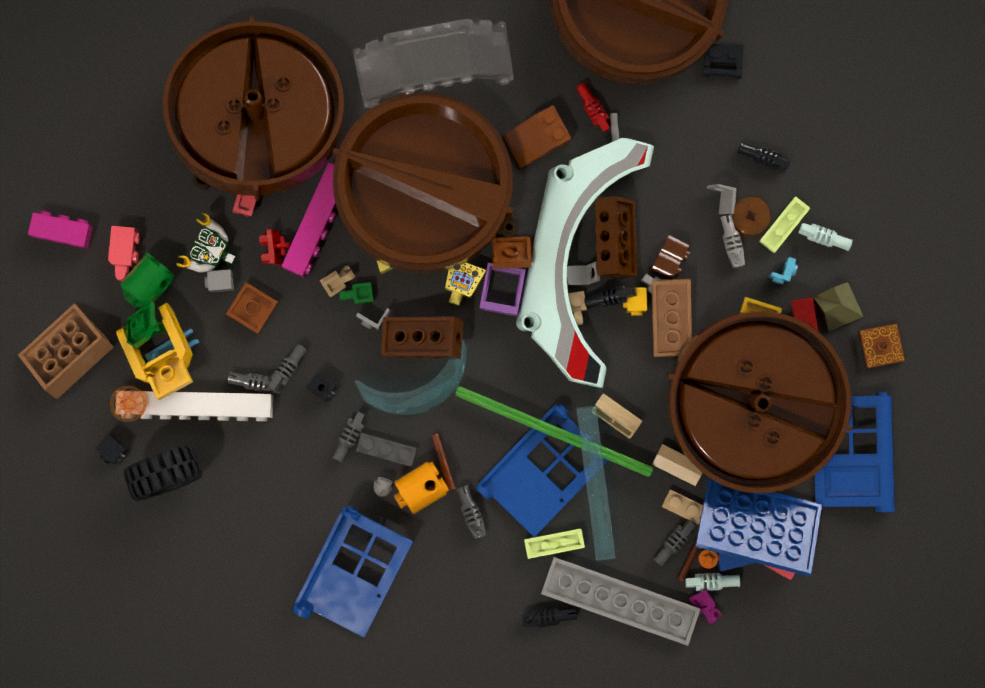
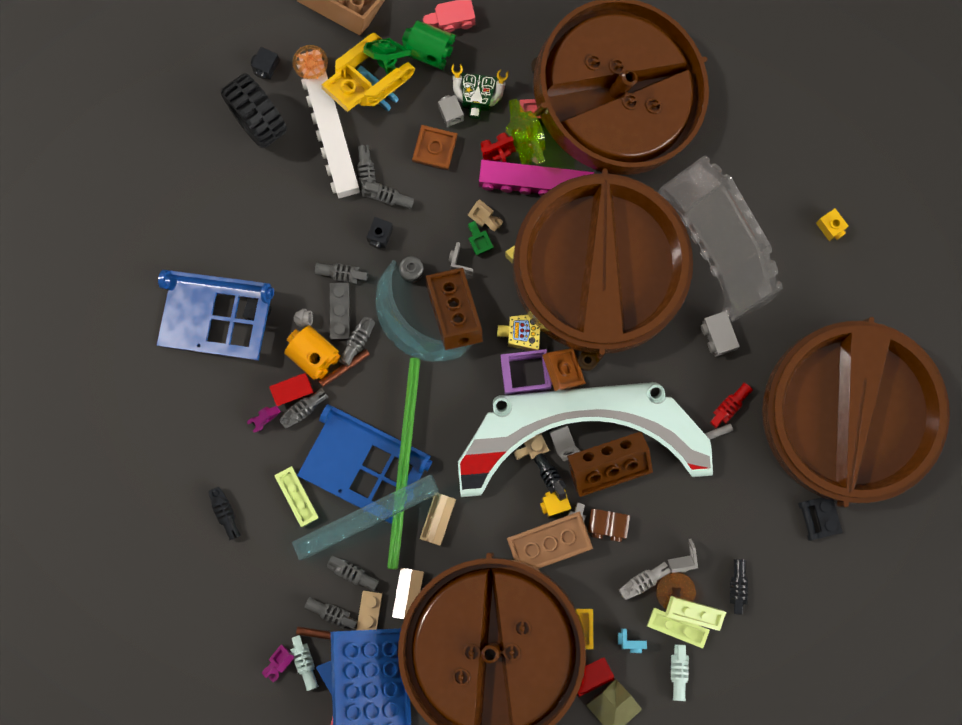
camera: 70 degrees right, 5 degrees down
(272, 214) = (526, 134): none -> clear neon green plate
(368, 367) = (411, 269): none -> dark grey head
(420, 440) = (357, 340): none -> dark grey hinge
(449, 518) = (291, 389): none -> red hinge
(468, 550) = (265, 416): none -> magenta plate
(523, 95) = (720, 334): none -> light grey brick
(537, 137) = (683, 360): dark orange slope -> none
(620, 601) = (259, 578): light grey plate -> none
(643, 512) = (352, 573): none -> dark grey hinge
(708, 559) = (323, 651): orange tile -> none
(776, 204) = (695, 613): none -> yellowish green plate

